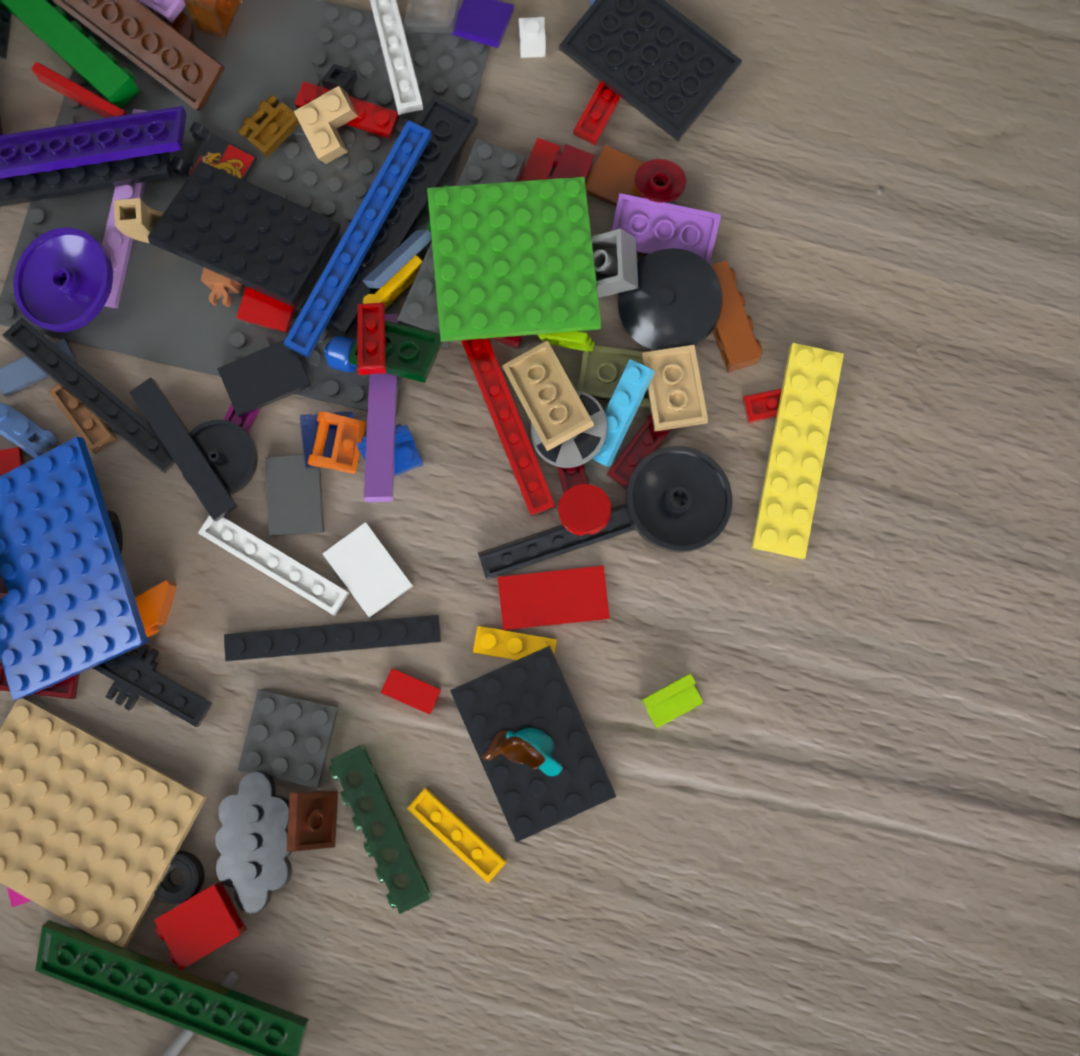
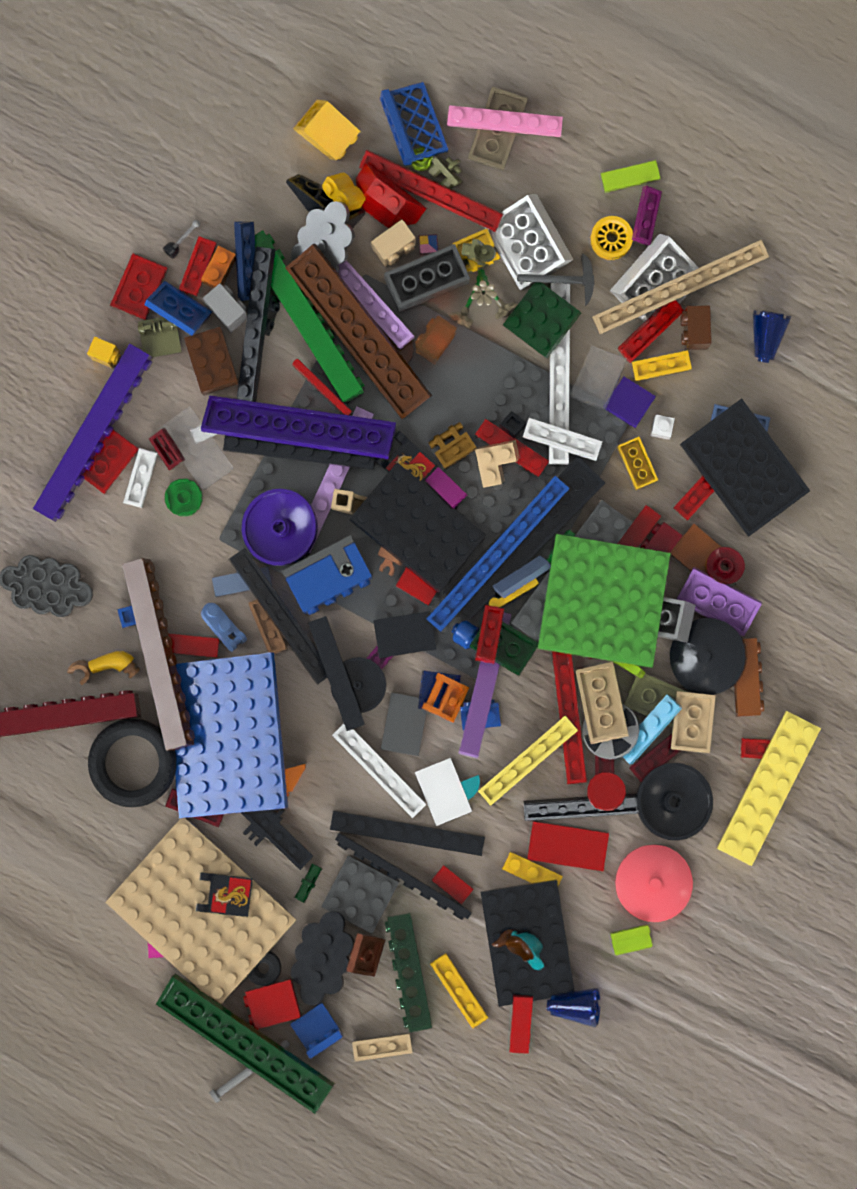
camera: 20 degrees right, 5 degrees up
(96, 788) = (227, 895): none -> flag
(138, 323) = (320, 576): none -> blue piece
(212, 742) = (308, 883): none -> dark green pin
(271, 945) = (317, 1030): none -> blue bracket
(273, 178) = (446, 487): none -> magenta slope
(350, 701) = (409, 881): none -> black plate
(368, 944) = (382, 1047): none -> tan plate
(403, 553) = (471, 786): none -> teal tile
(405, 73) = (562, 439): none -> white plate
(469, 497) = (528, 760): none -> light yellow plate
(512, 90) = (637, 463): none -> yellow piece
(553, 858) = (521, 1024): none -> red tile
(623, 813) = (577, 1006): none -> clear blue cone
(681, 616) = (654, 883): none -> coral dish

